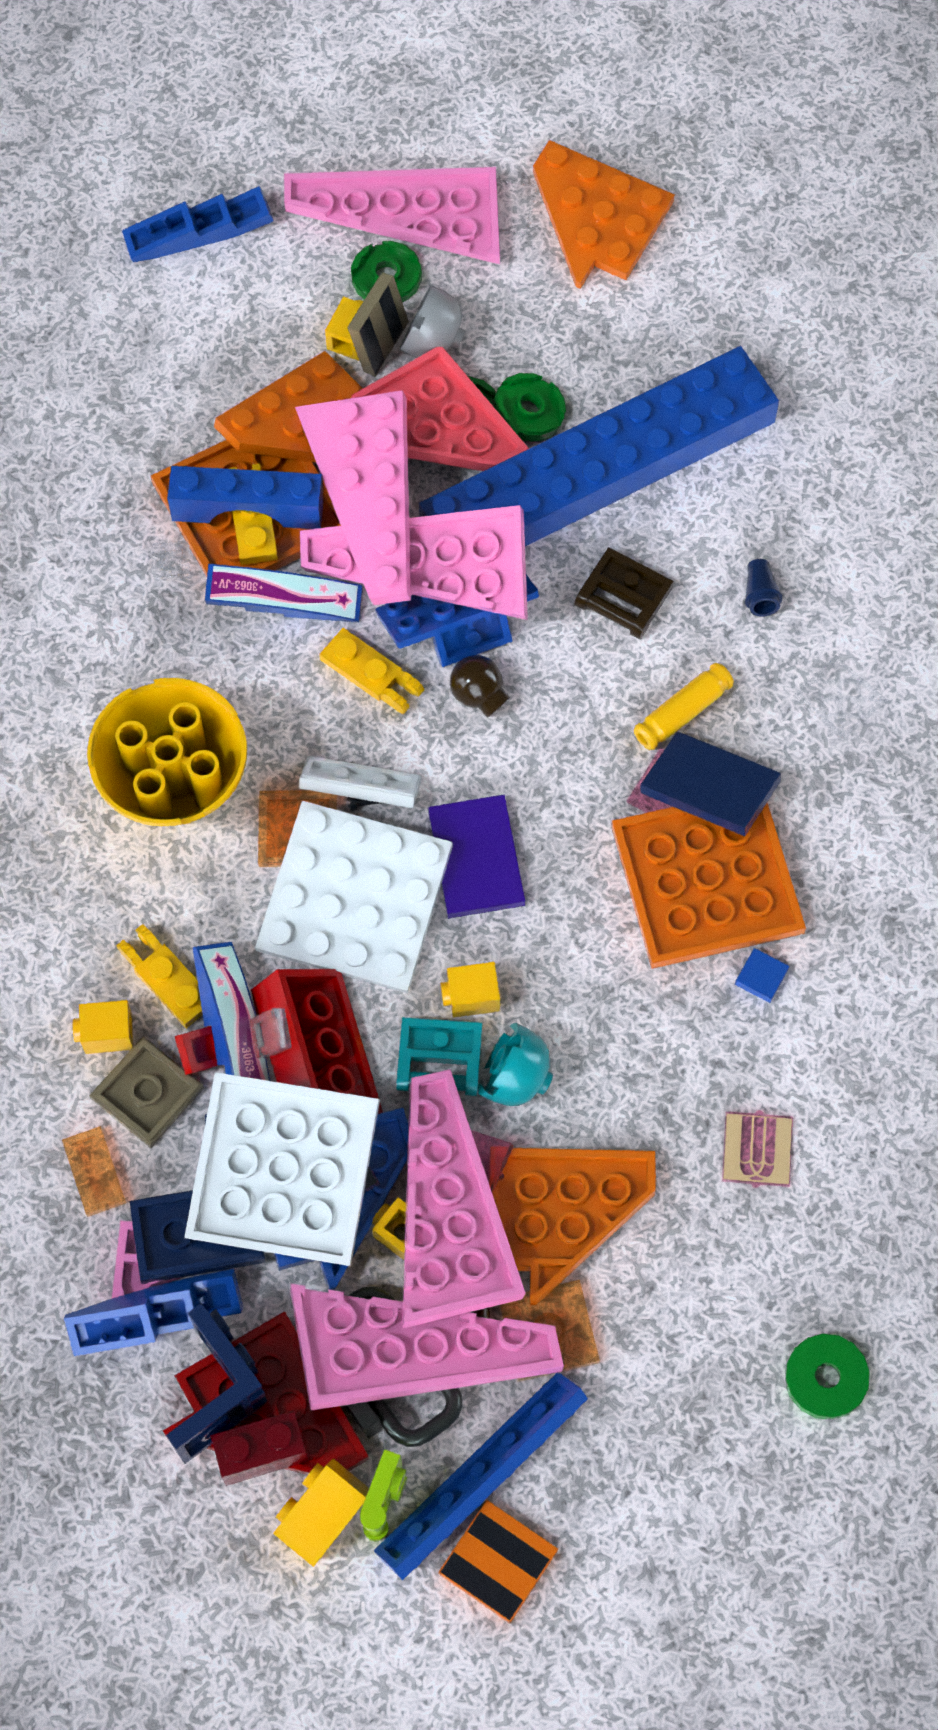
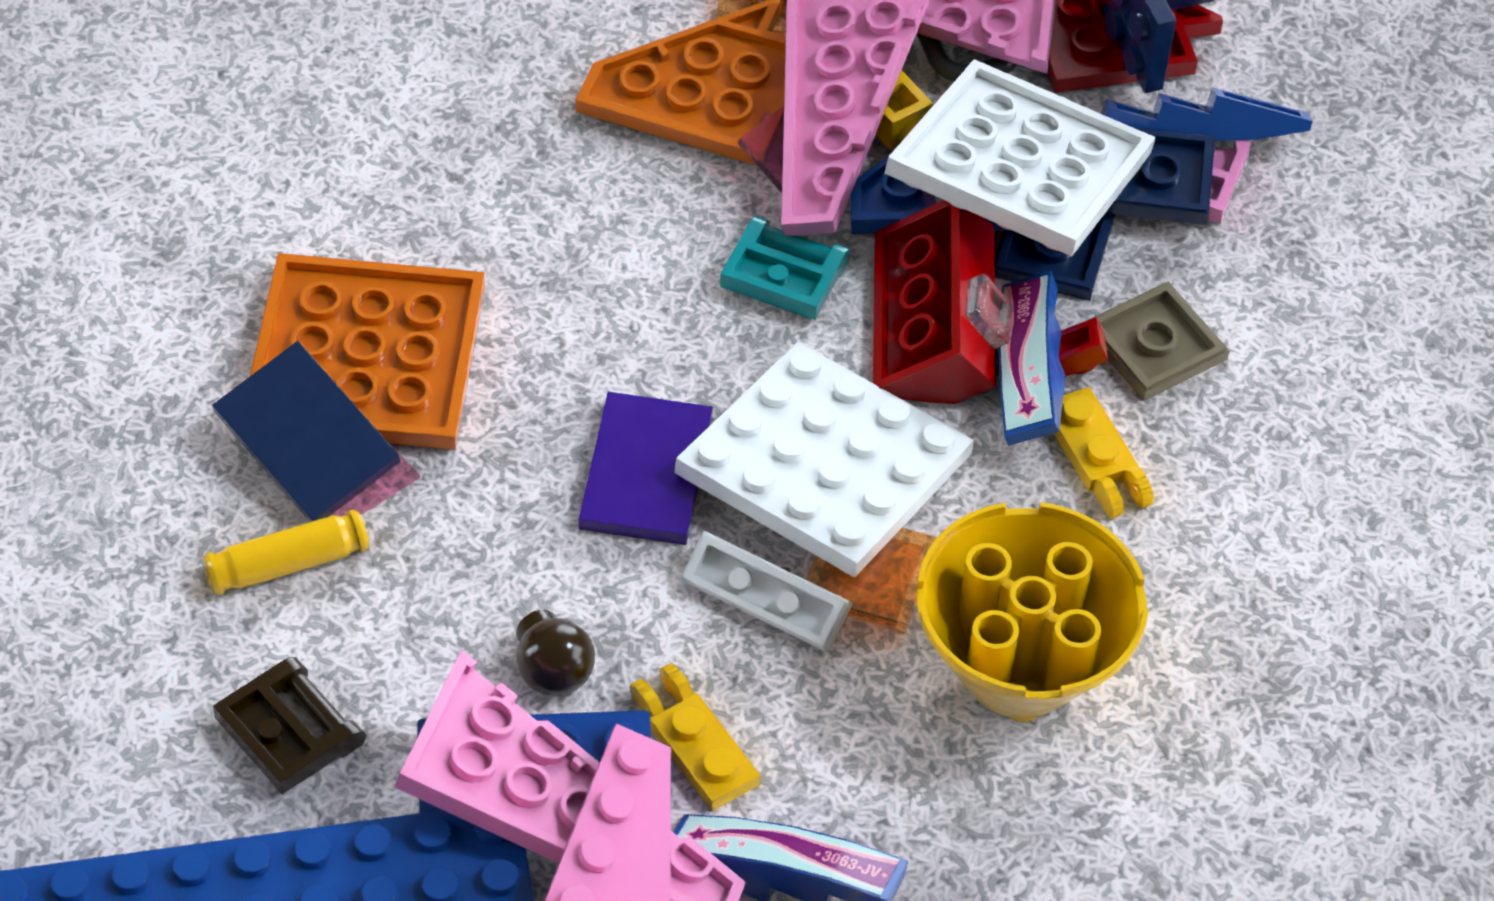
camera: 165 degrees left, 15 degrees down
(93, 1171) = (1241, 282): clear orange tile -> none
(104, 1027) = (1193, 406): yellow brick -> none
(471, 989) = (718, 312): yellow brick -> none
(517, 1068) = (701, 203): teal cylinder -> none
(757, 1149) = (454, 88): piece -> none
(762, 591) = (93, 666): dark blue cone -> none
(762, 975) = (355, 237): blue tile -> none

